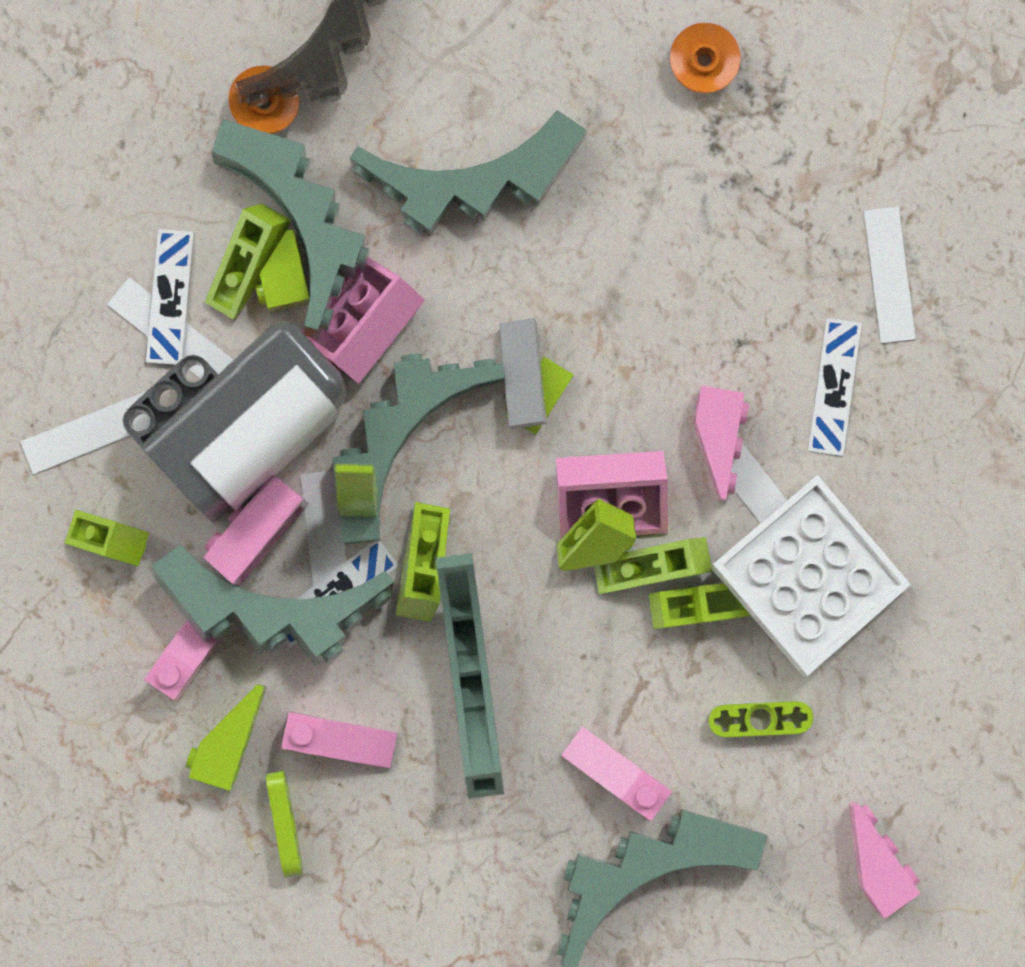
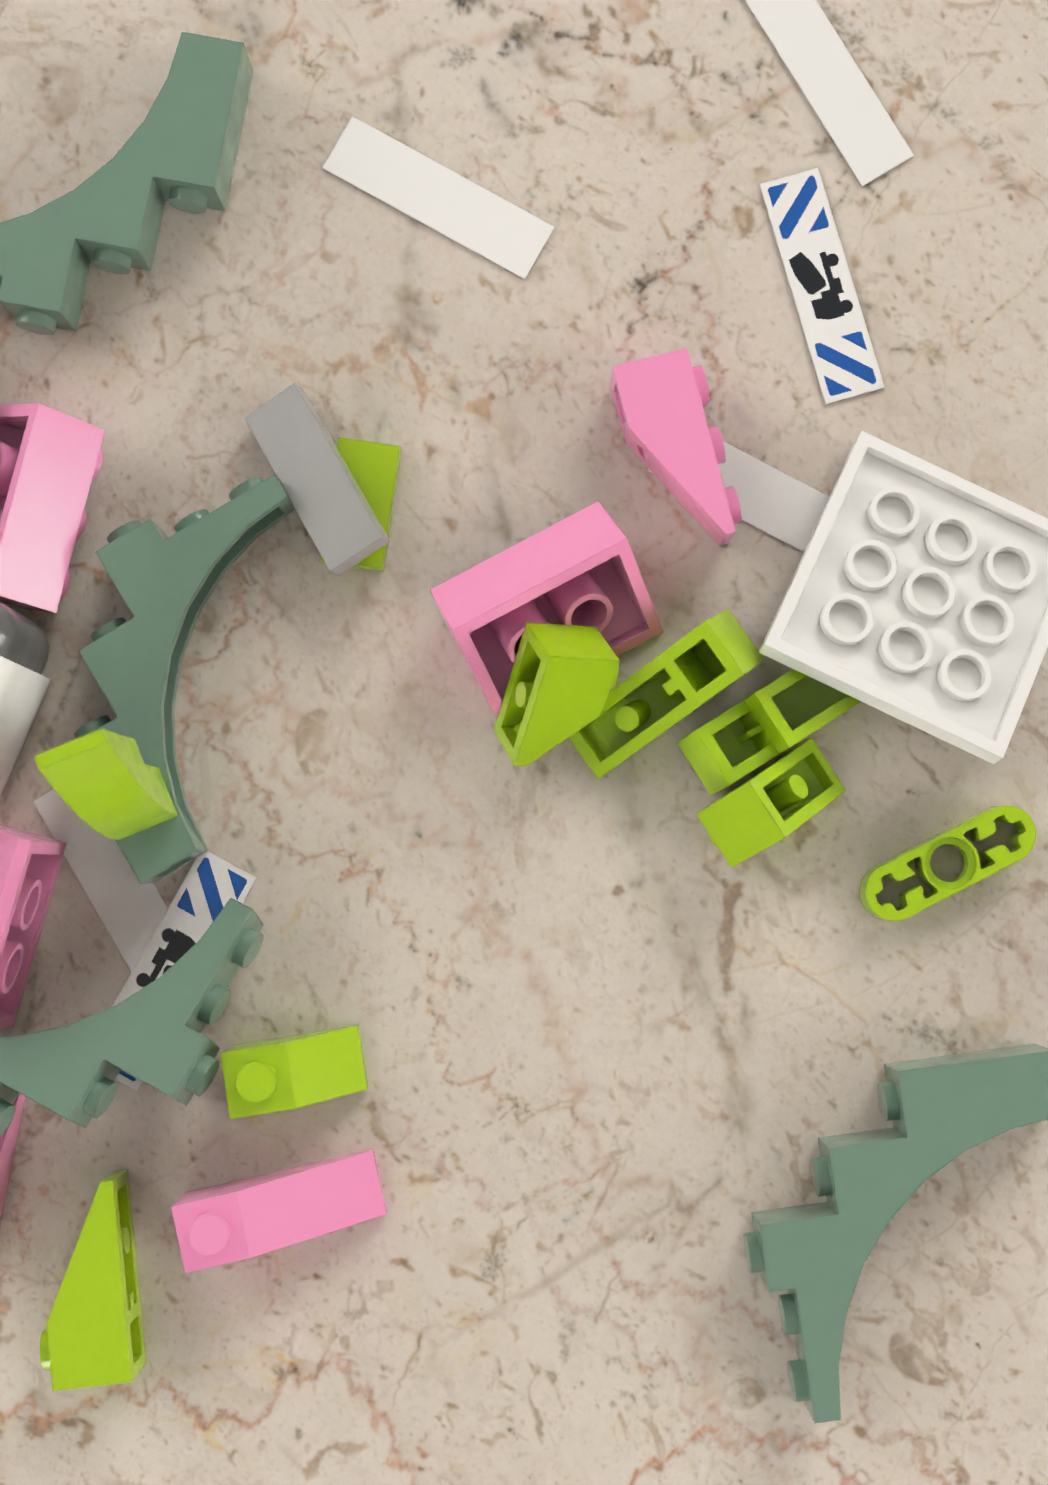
camera: 20 degrees left, 0 degrees up
(284, 824) = (251, 1388): lime beam -> none
(377, 673) = (293, 1071): none -> lime slope
(419, 582) = (291, 855): lime slope -> none
(470, 675) = (447, 1010): sand green arch -> none
(616, 773) = (761, 1058): bright pink slope -> none
(653, 249) = (438, 197): none -> white sticker
(683, 646) = (771, 803): none -> lime slope

